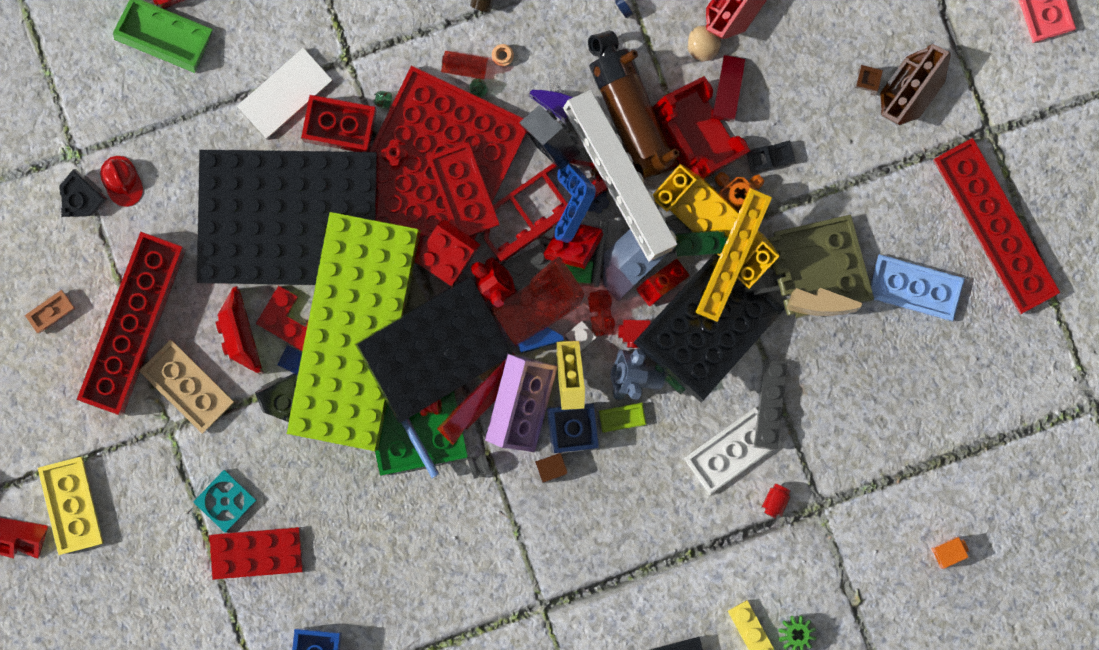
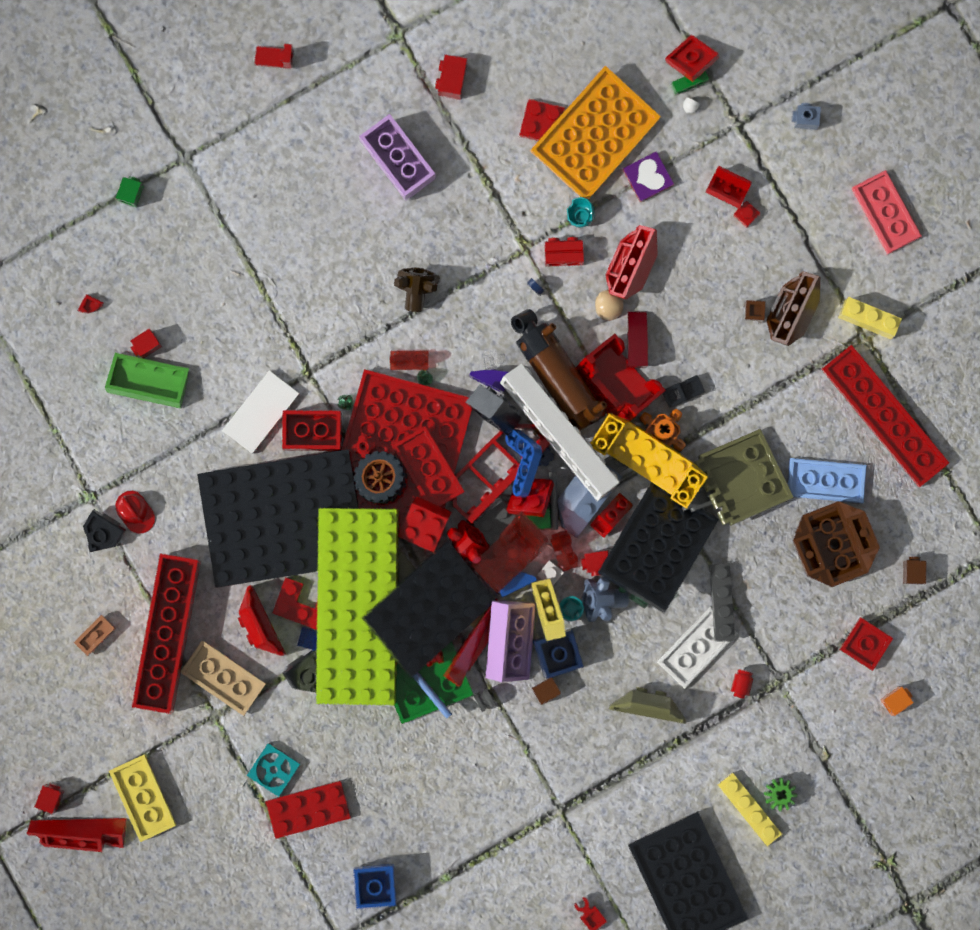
camera: 10 degrees left, 0 degrees up
(422, 203) = (368, 464): none -> black wheel
(502, 48) = (437, 340): light nougat plate -> none
(596, 379) = (571, 608): none -> teal wheel
(622, 417) = (598, 636): lime tile -> none
(665, 505) = (648, 705): none -> olive wedge
(700, 243) = (641, 476): dark green hinge -> none
(733, 254) = (668, 482): yellow plate -> none
(822, 303) = (750, 509): tan slope -> none
(926, 481) = (866, 644): none -> red plate
(935, 356) = (855, 539): none -> reddish brown piece
(997, 408) = (914, 571): none -> reddish brown brick
(999, 111) = (869, 318): none -> light yellow brick

